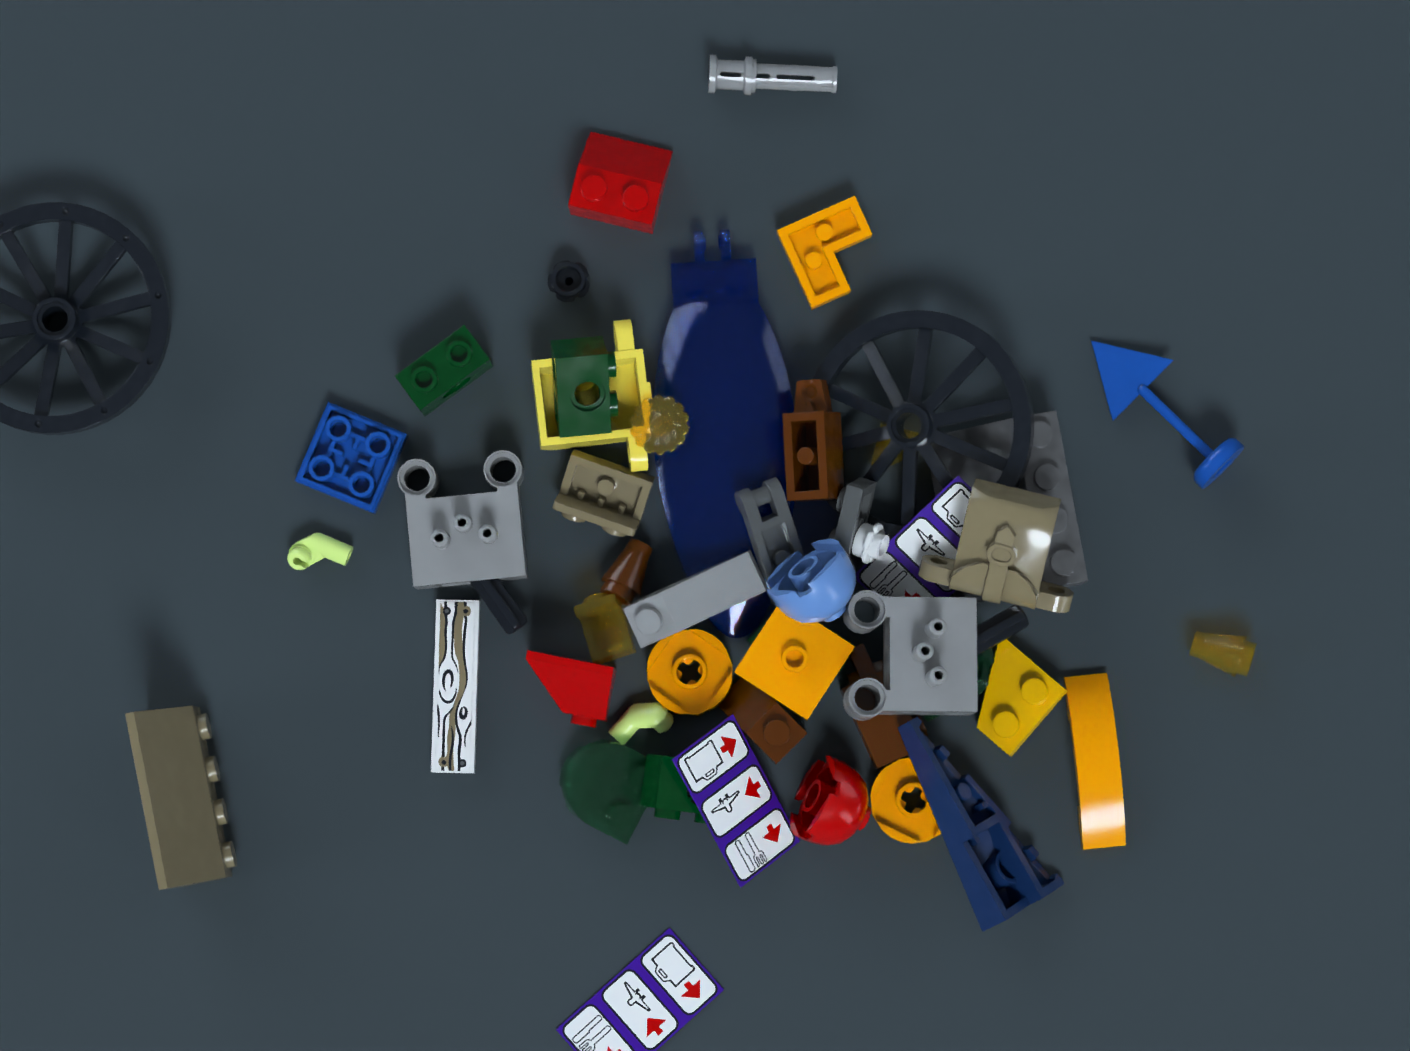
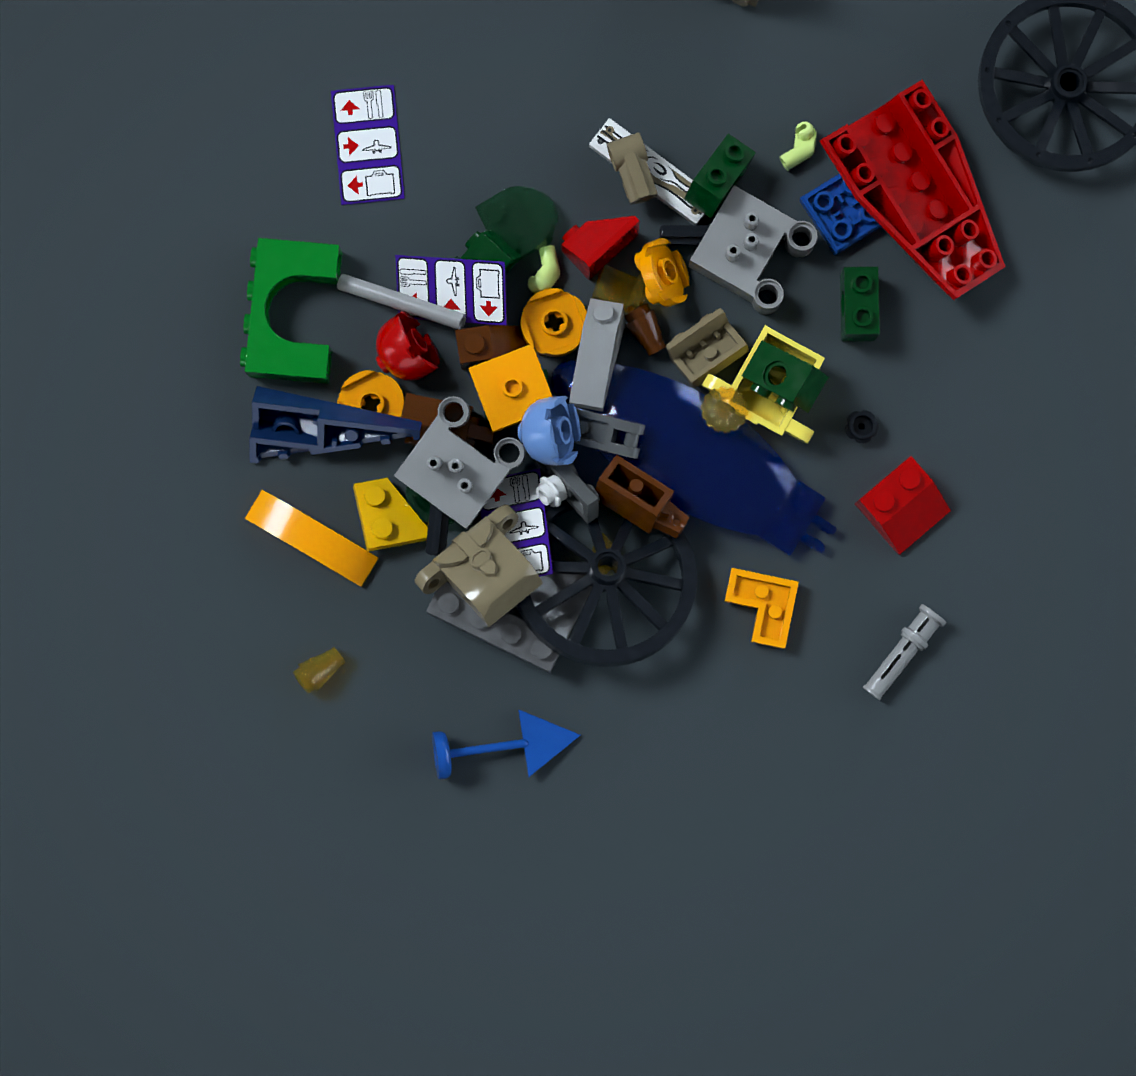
camera: 125 degrees right, 0 degrees up
(280, 394) = (919, 188): none -> red wedge
(413, 608) = (719, 175): none -> dark green brick
(463, 714) = (629, 159): none -> dark tan piece
(558, 594) = (662, 273): none -> light orange plate
(784, 846) = (401, 301): none -> light grey piece
(938, 949) = (276, 266): none -> green arch

